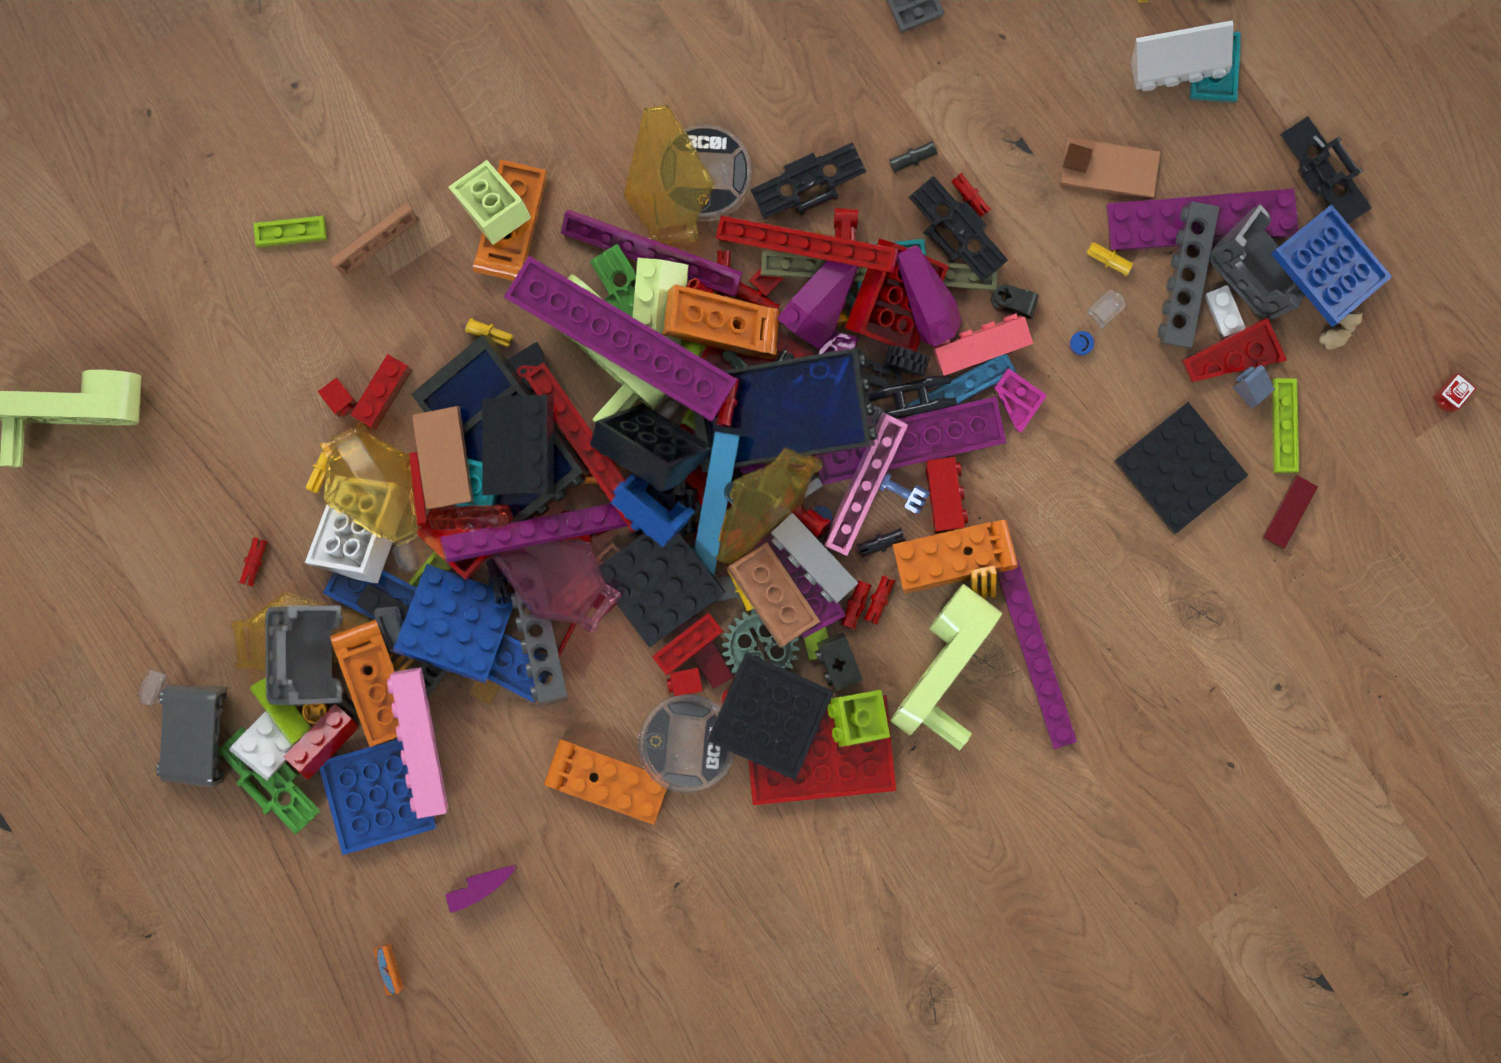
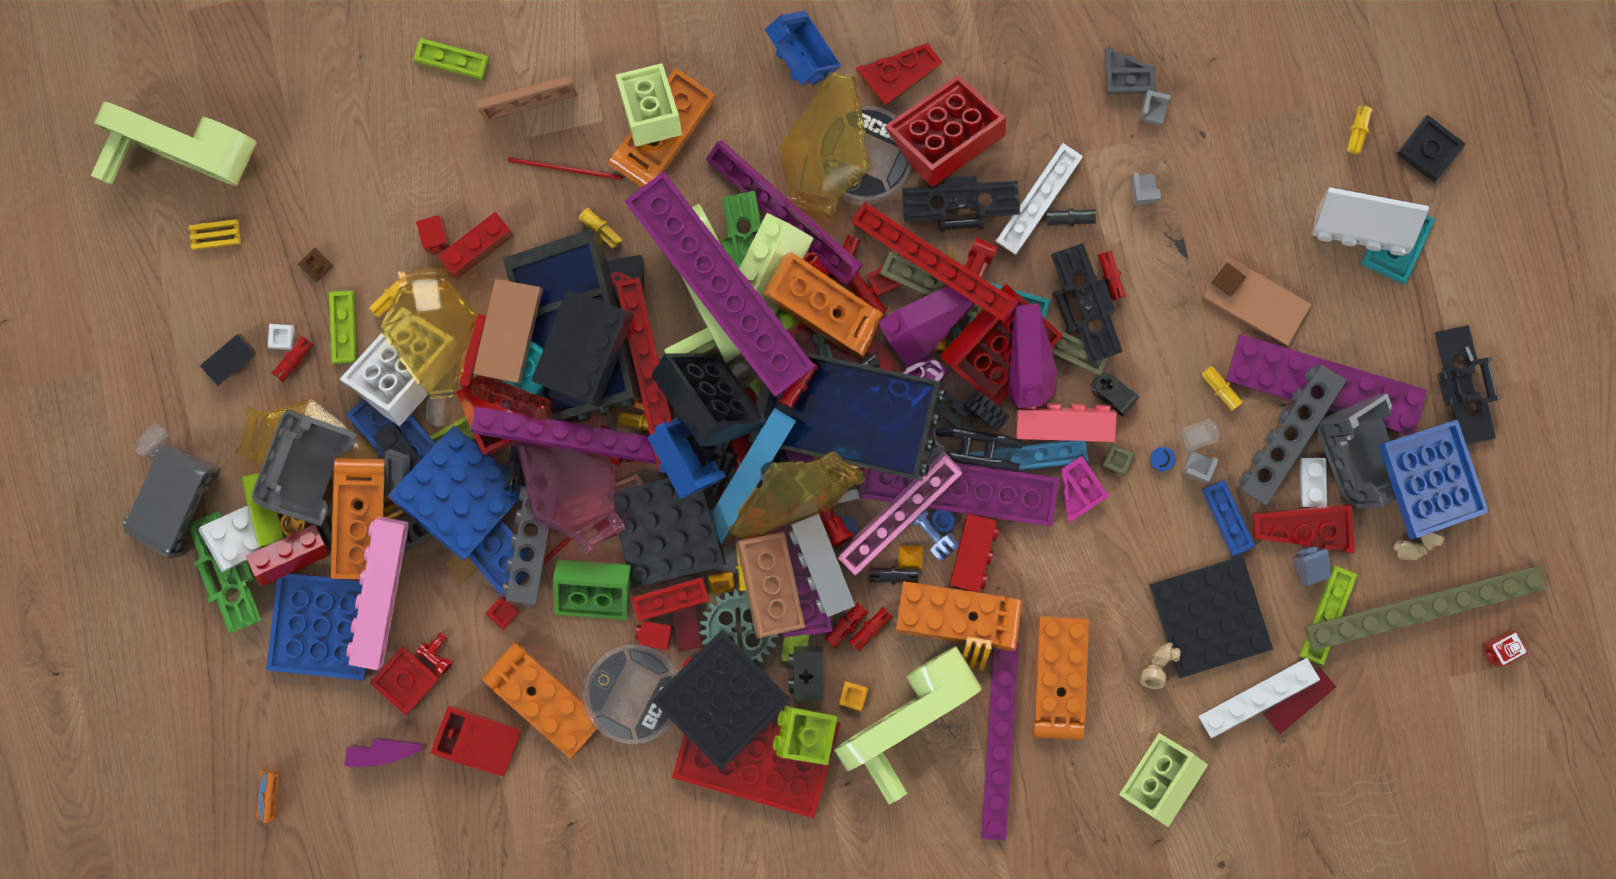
camera: 25 degrees right, 0 degrees up
(117, 485) = (215, 225): none -> yellow tile
(194, 585) = (228, 359): none -> black hinge
(234, 546) = (281, 336): none -> white tile
(239, 468) = (315, 264): none -> reddish brown tile
(288, 515) = (343, 327): none -> lime tile
(434, 291) = (564, 168): none -> red piece
(473, 814) = (404, 680): none -> red plate
(485, 780) = (428, 652): none -> red piece
(538, 717) = (502, 613): none -> red tile
(561, 842) = (475, 741): none -> red slope
(590, 496) = (633, 421): none -> yellow axle
(609, 97) = (802, 48): none -> blue piece
(612, 664) = (591, 589): none -> bright green slope
(705, 87) = (898, 73): none -> red wing
(728, 611) = (721, 582): none -> light orange slope
(770, 121) = (946, 130): none -> red slope
(878, 152) = (1039, 199): none -> white plate
(888, 666) = (853, 696): none -> light orange tile
(889, 520) = (910, 557): none -> light orange slope
(906, 476) = (942, 521): none -> blue tile
(948, 28) = (1154, 107): none -> light grey panel
(969, 106) = (1144, 189): none -> light grey panel
(1042, 359) = (1118, 459): none -> olive tile
(1063, 563) = (1060, 663): none -> orange hinge
(1118, 337) = (1199, 467): none -> light grey panel
(1151, 541) = (1153, 676): none -> tan arm
(1161, 373) = (1228, 518): none -> blue tile
(1196, 630) = (1163, 779): none -> yellowish green slope
(1253, 524) = (1259, 698): none -> white plate
(1369, 384) = (1425, 607): none -> olive plate

